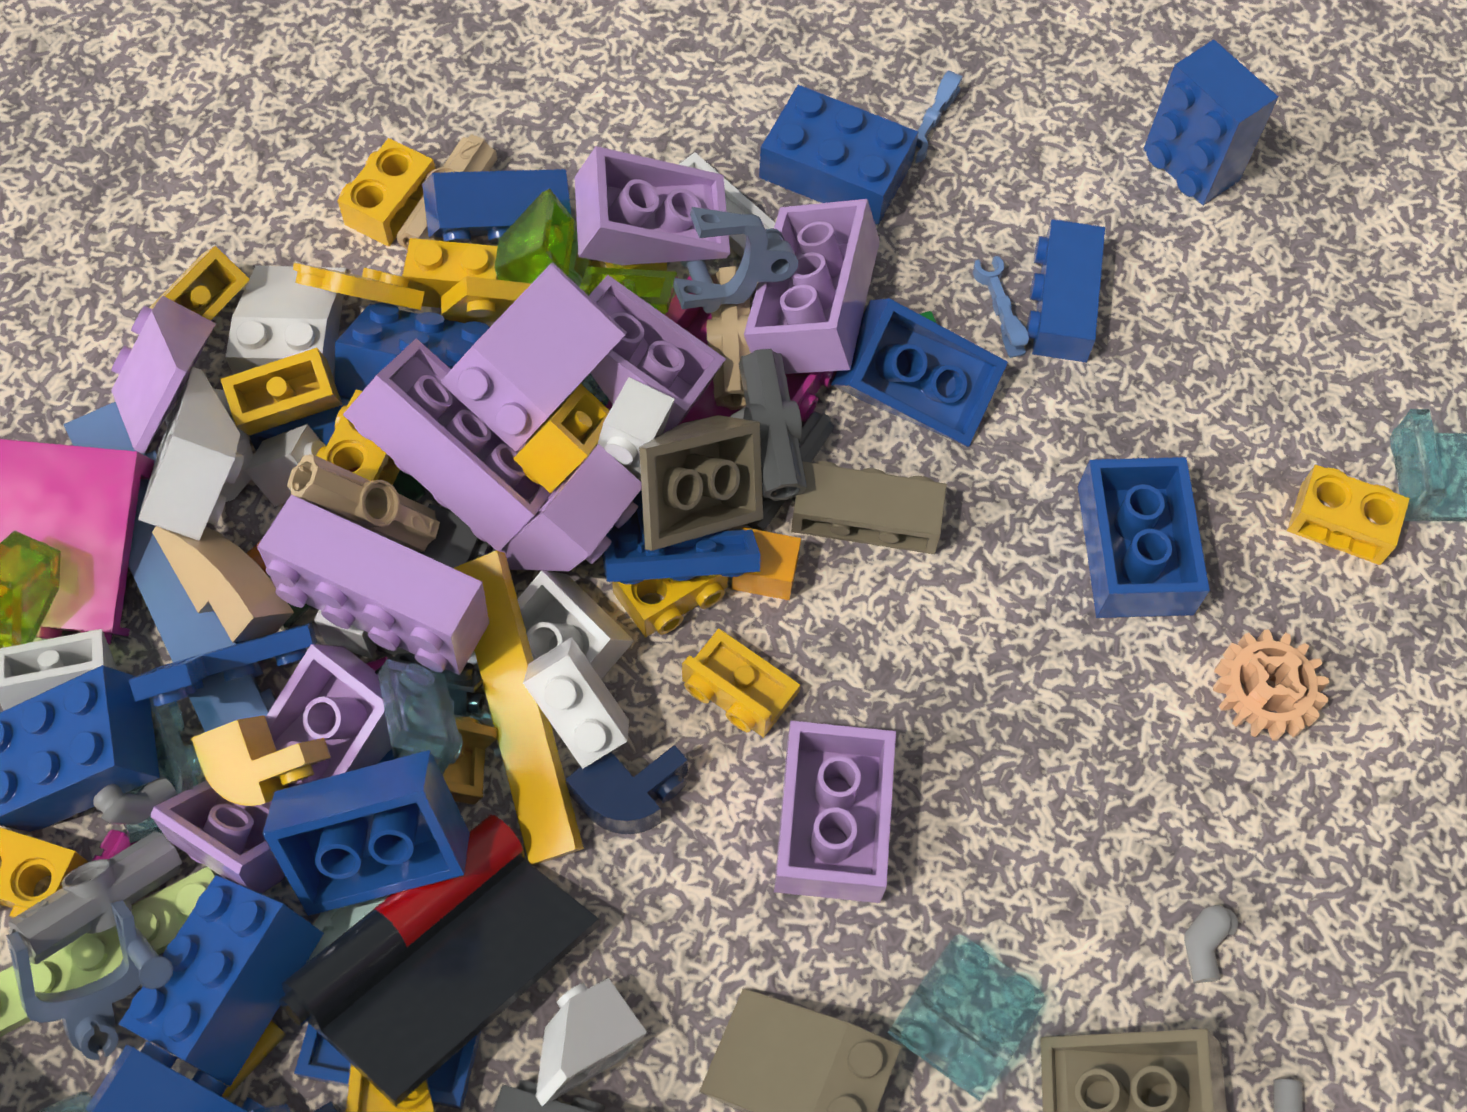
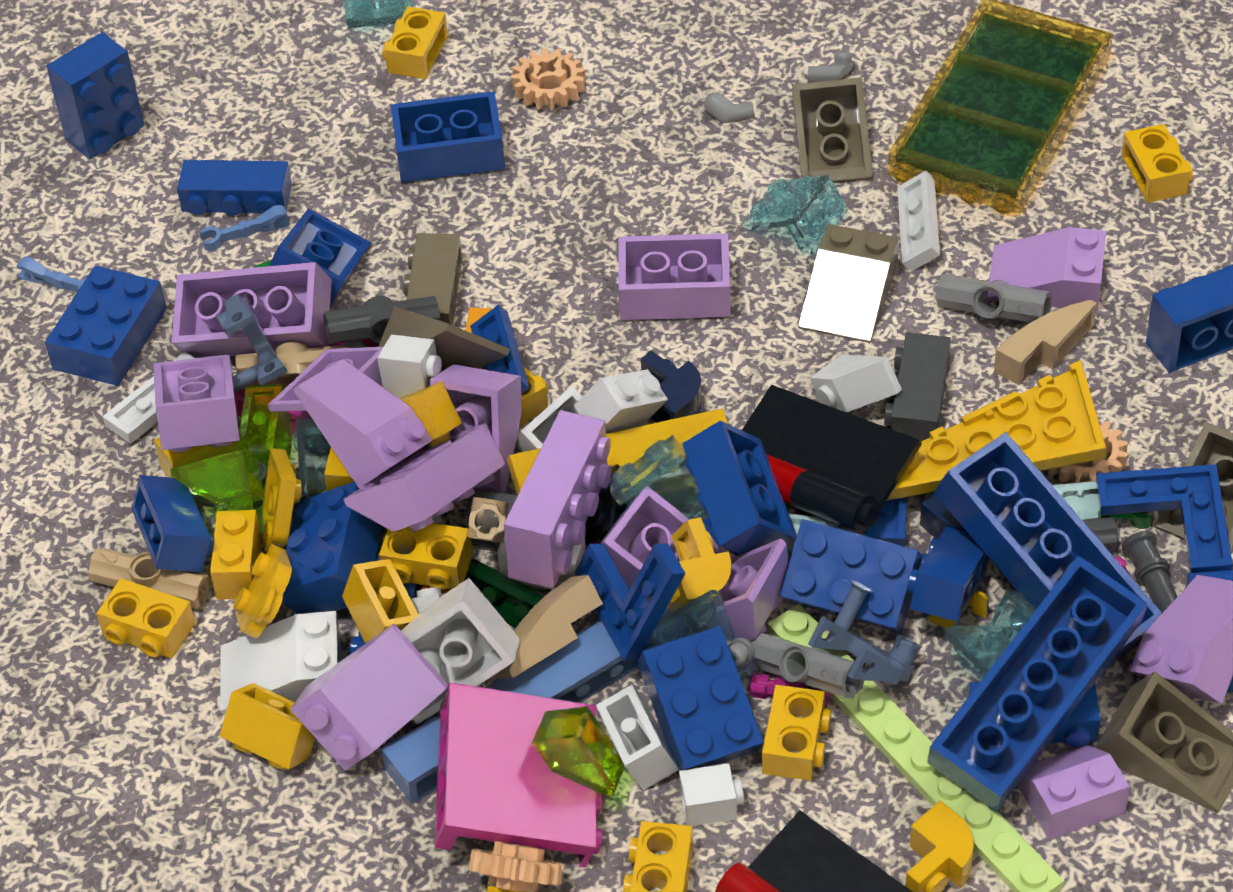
camera: 90 degrees left, 15 degrees down
(739, 683) = (582, 343): yellow bracket -> none

